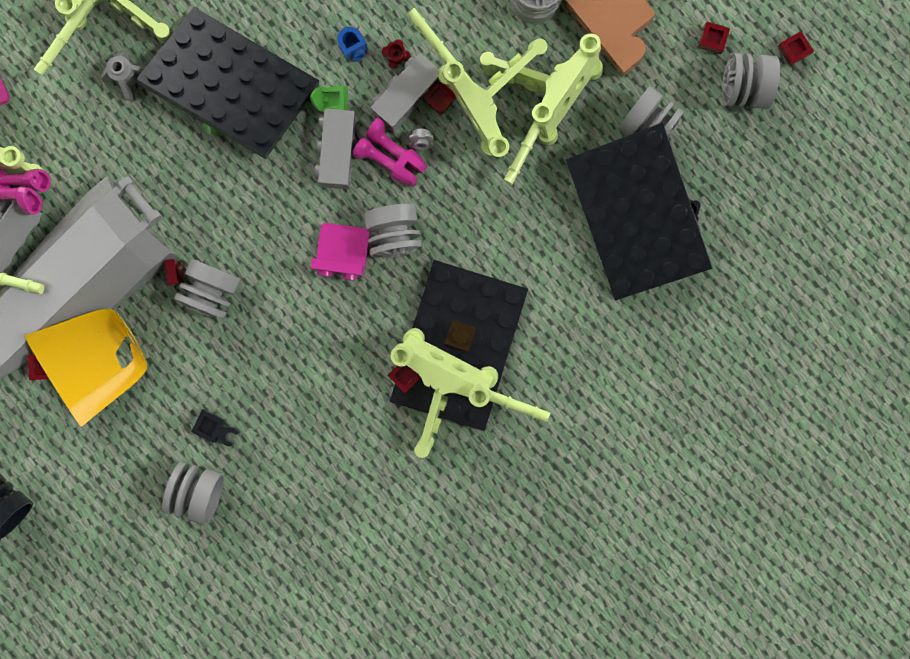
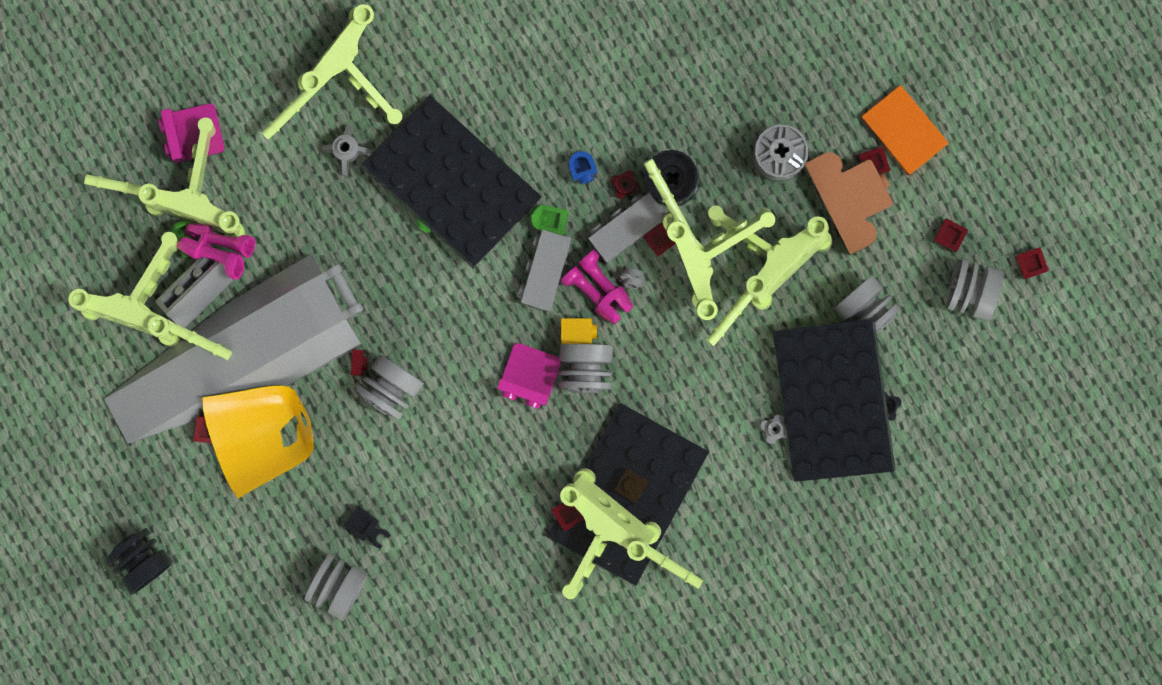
camera: 15 degrees right, 0 degrees up
(378, 197) = (578, 331): none -> yellow brick
(444, 22) = (675, 163): none -> black wheel
(578, 253) = (767, 426): none -> light grey plate

